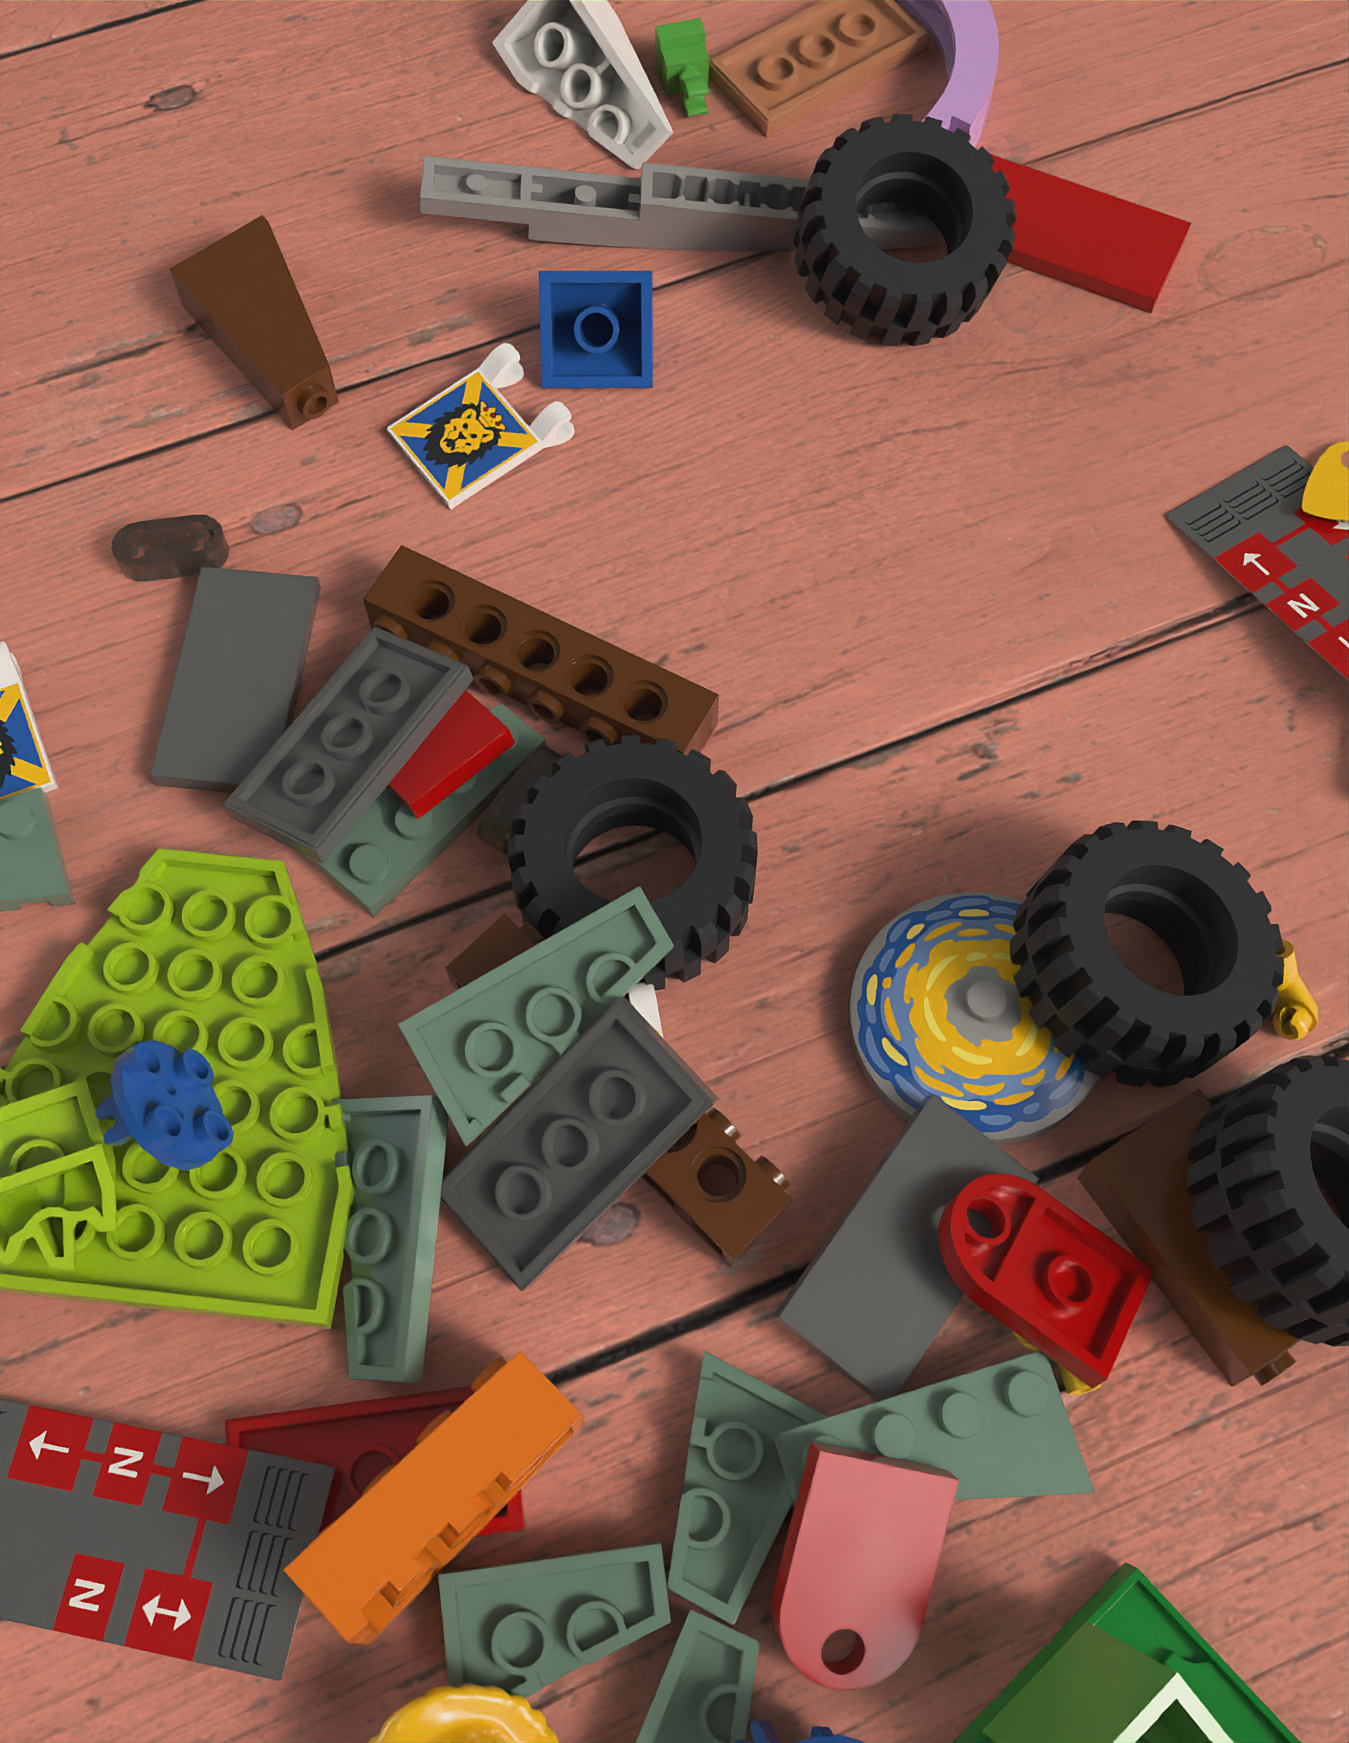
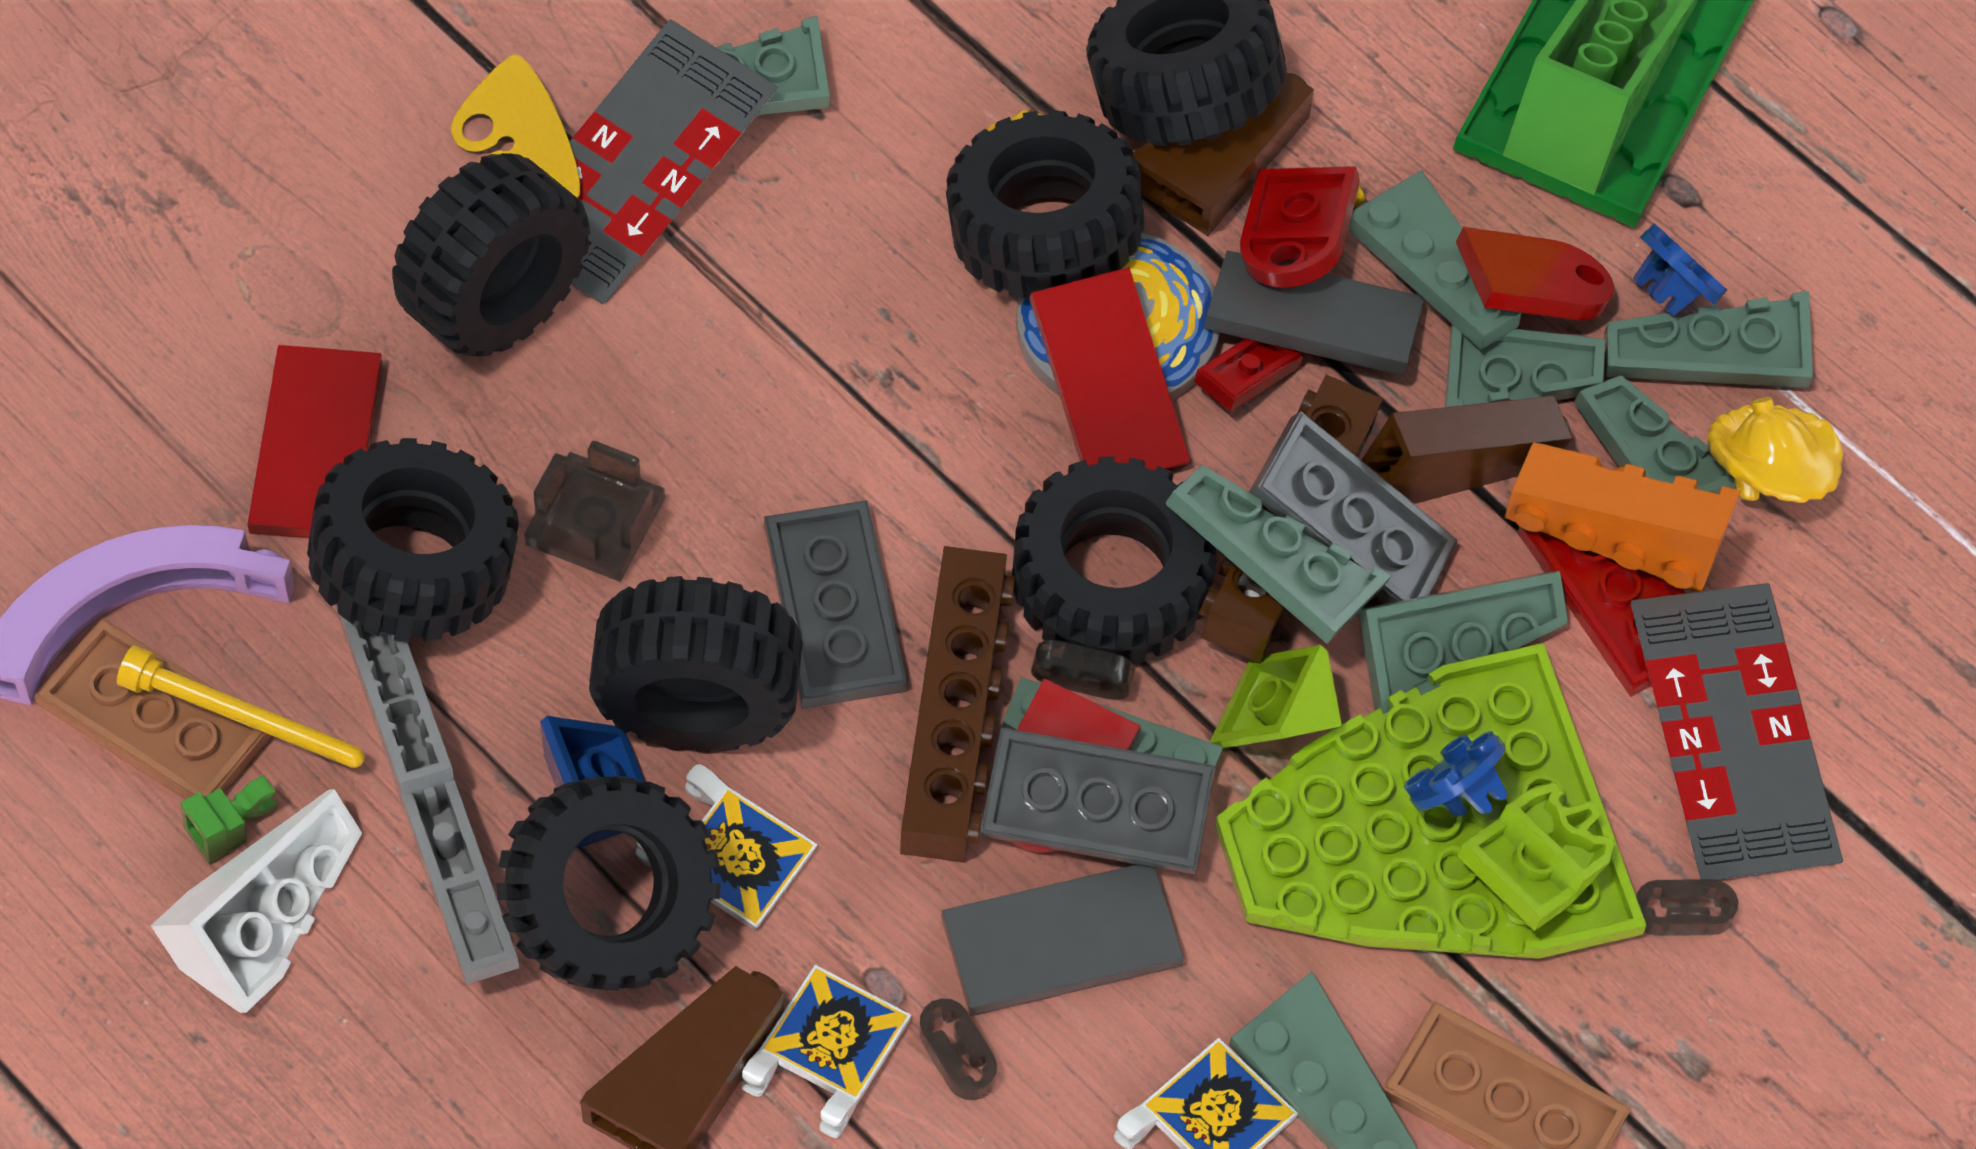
camera: 115 degrees left, 5 degrees down
(238, 454) = (831, 1038): none -> flag
(373, 973) = (1280, 699): none -> lime slope
(409, 235) = (678, 898): none -> black tyre
(629, 1355) = (1463, 446): none -> reddish brown slope
(641, 387) = (696, 664): none -> black tyre
(715, 605) = (839, 599): none -> dark grey tile
(847, 1124) = (1246, 371): none -> red plate
(851, 34) = (143, 672): none -> yellow piece
(884, 951) = (1109, 371): none -> red tile
(902, 419) = (594, 509): none -> clear smoke panel
(1222, 353) = (490, 254): none -> black tyre

